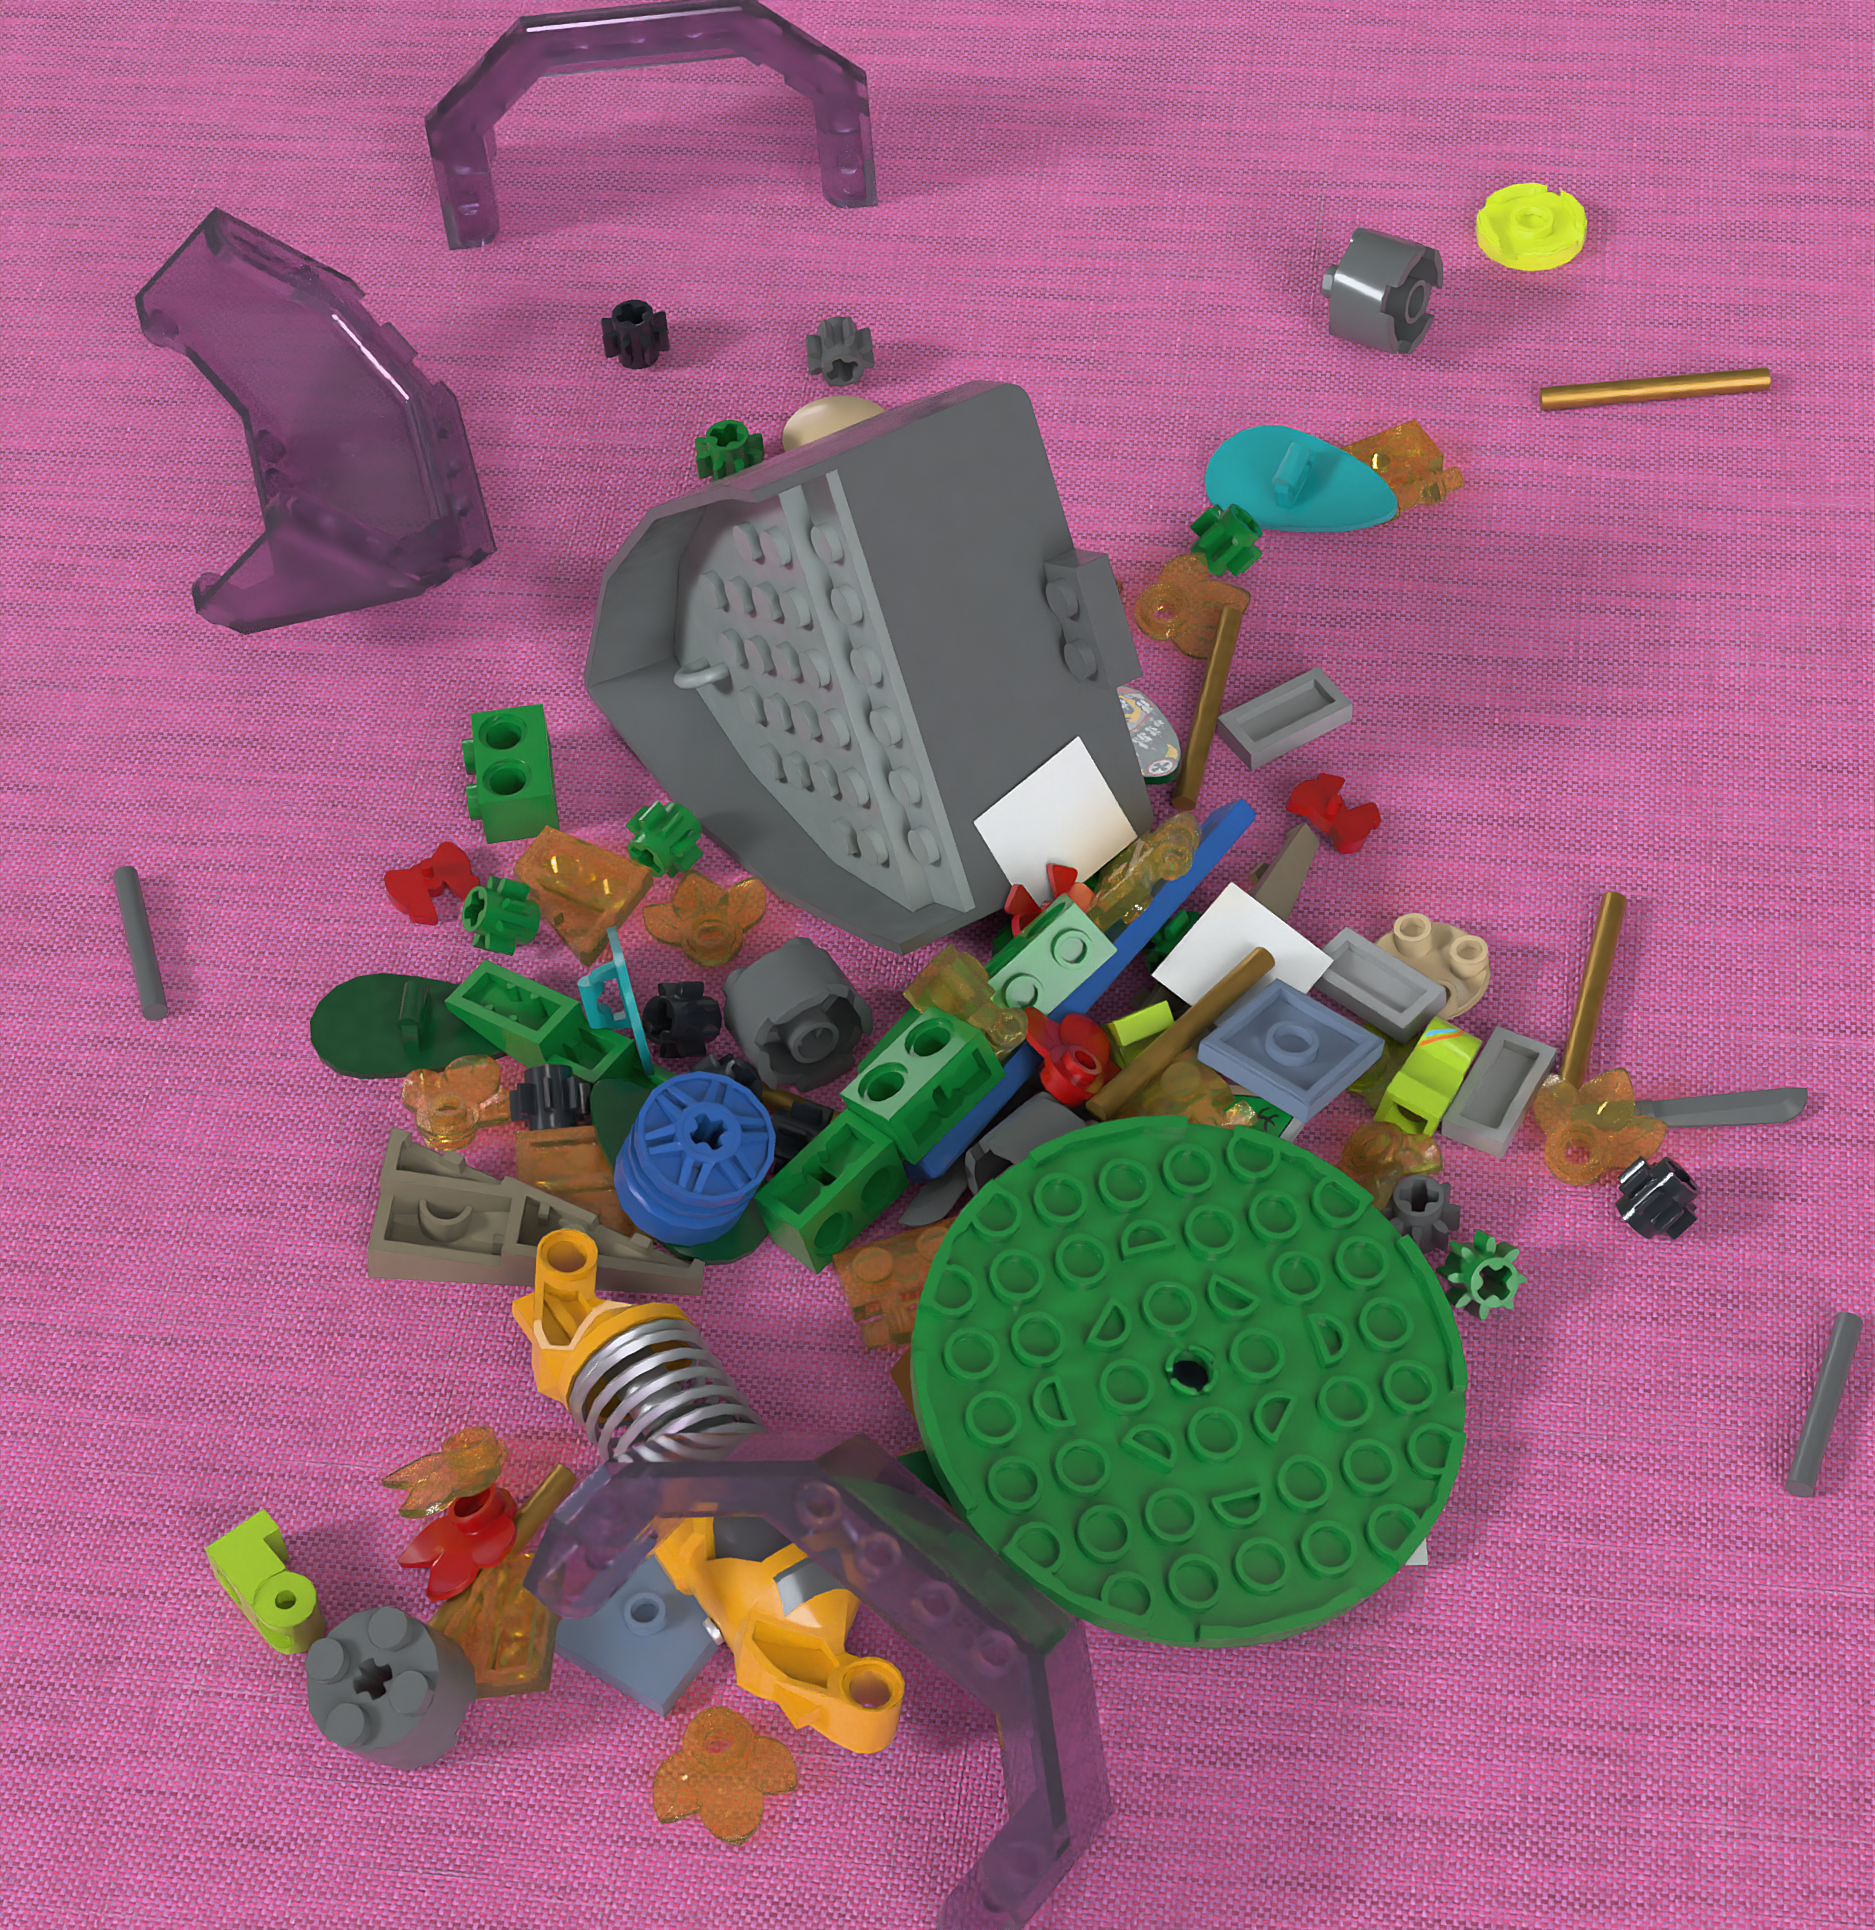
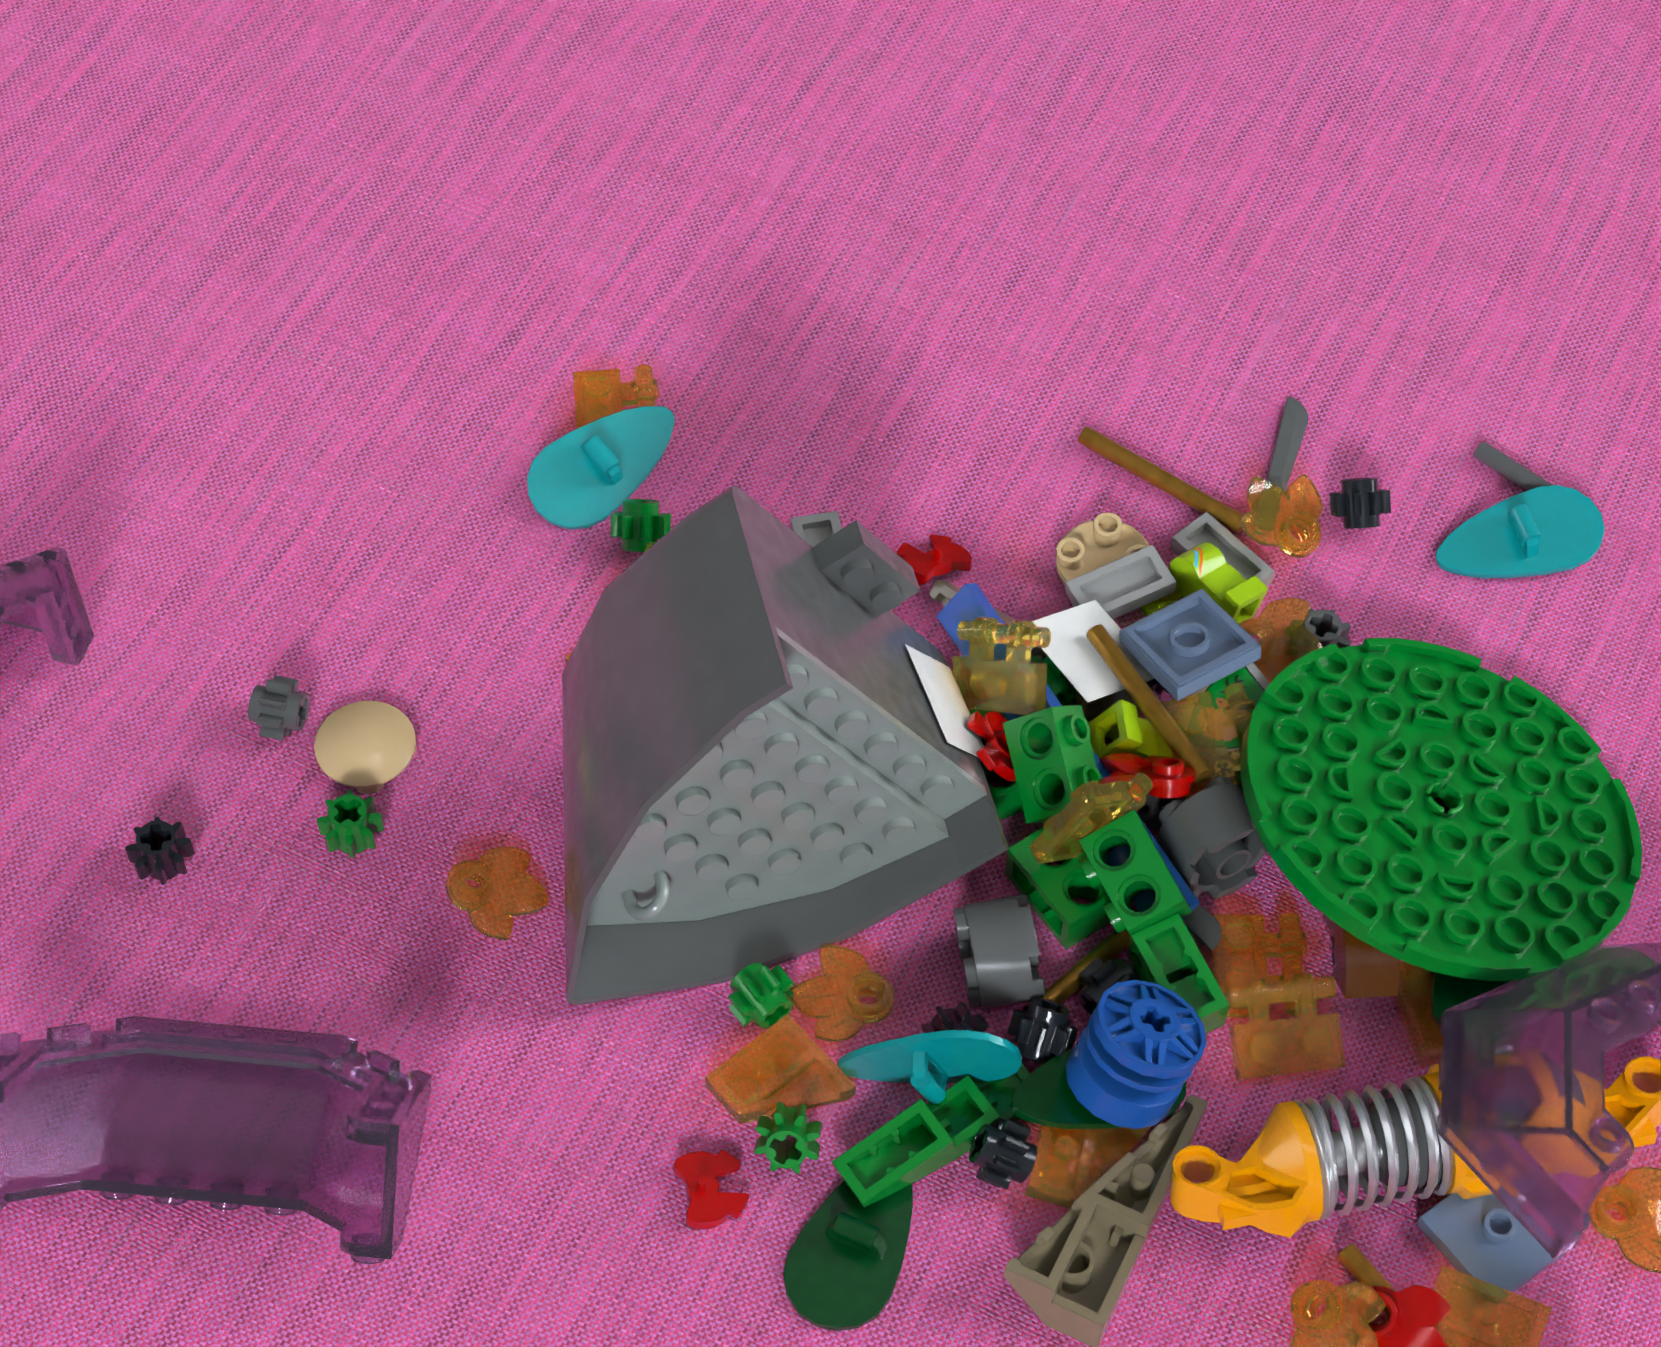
camera: 75 degrees left, 5 degrees up
(456, 1102) = (948, 1224): clear yellow plate -> none
(512, 773) = (636, 1073): green brick -> none
(809, 1337) = (1285, 1044): none -> clear yellow plate
(1382, 291) = (447, 335): dark grey brick -> none
(1495, 1264) = (1387, 616): green gear -> none
(1531, 227) = (405, 234): neon yellow tile -> none
(1654, 388) = (615, 231): pearl gold bar -> none
(1727, 1407) = (1526, 536): none -> teal shield

